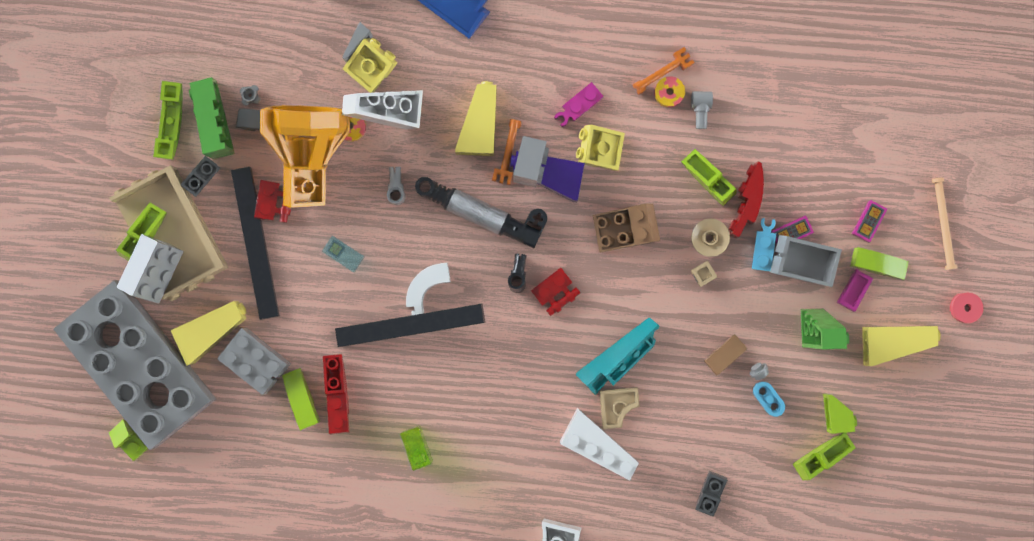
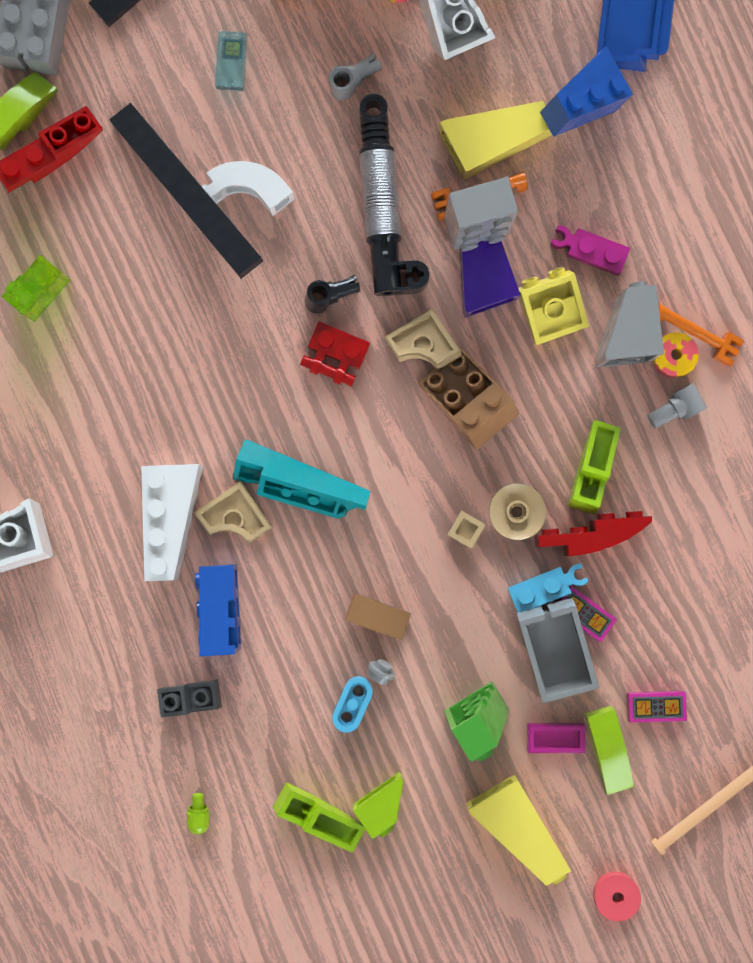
camera: 60 degrees right, 0 degrees up
(488, 55) = (588, 96): none -> blue wedge
(577, 234) = (425, 340): none -> tan tile
(641, 109) = (632, 329): none -> light grey slope
(670, 447) = (218, 610): none -> blue wedge
(783, 527) = (198, 815): none -> lime cylinder

